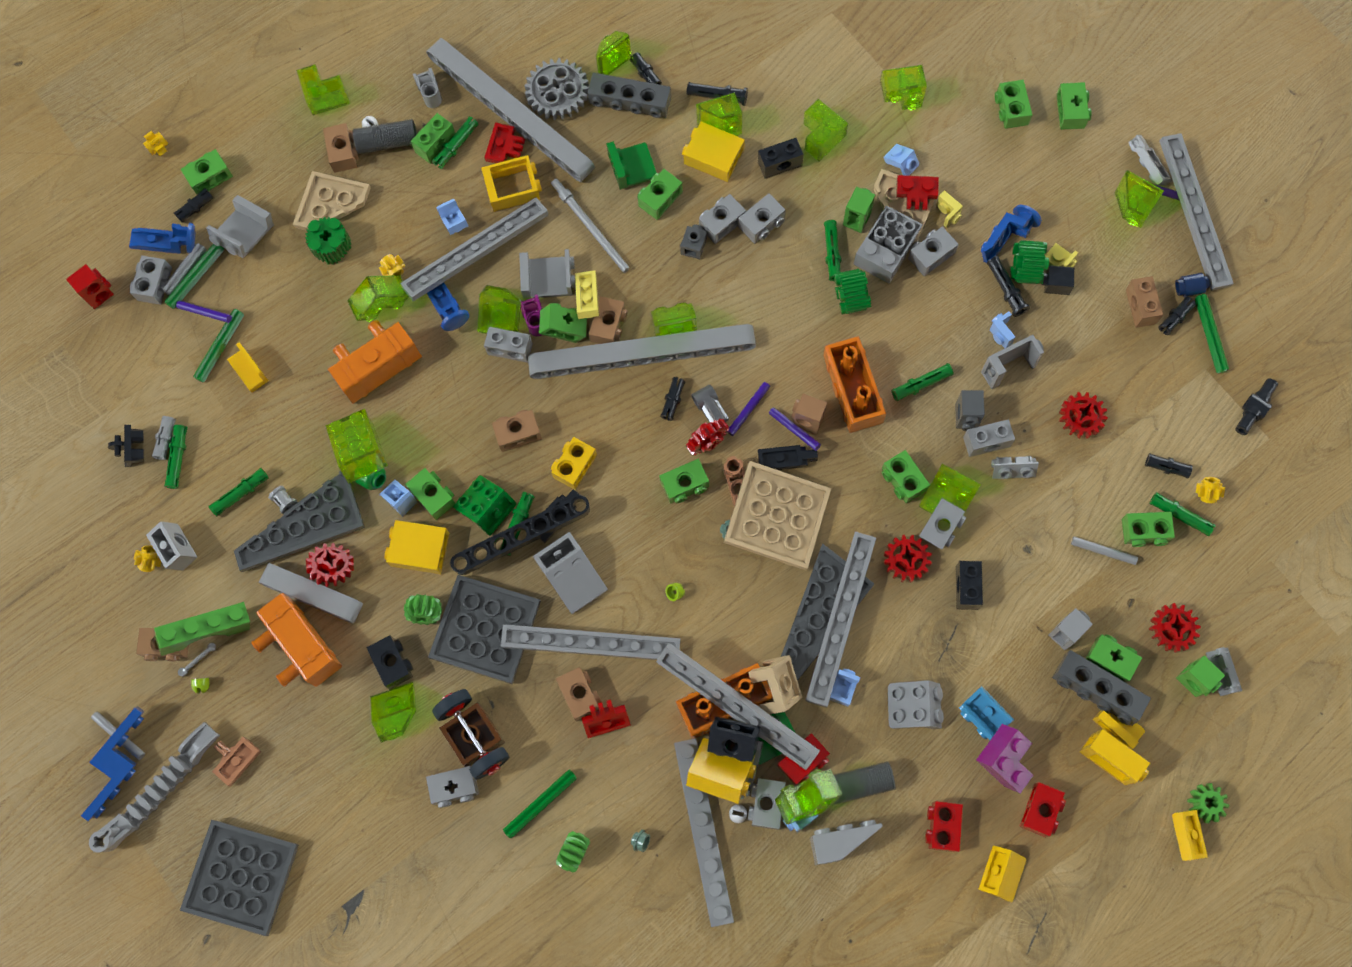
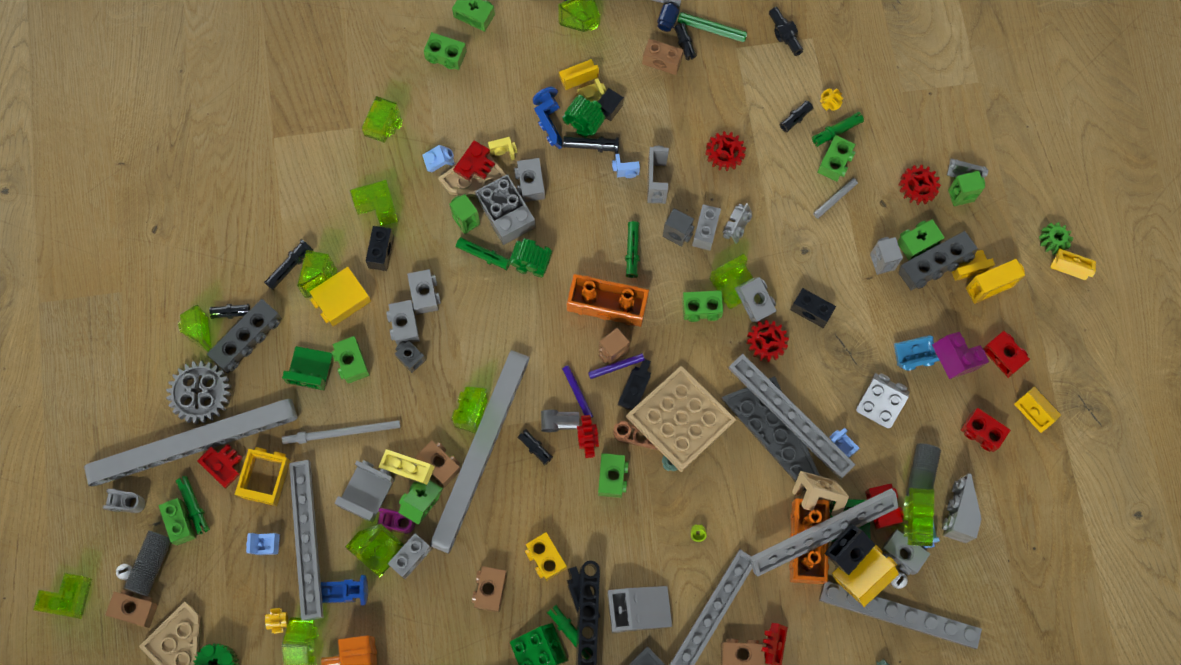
camera: 70 degrees left, 0 degrees up
(1072, 236) = (579, 74): none -> yellow panel

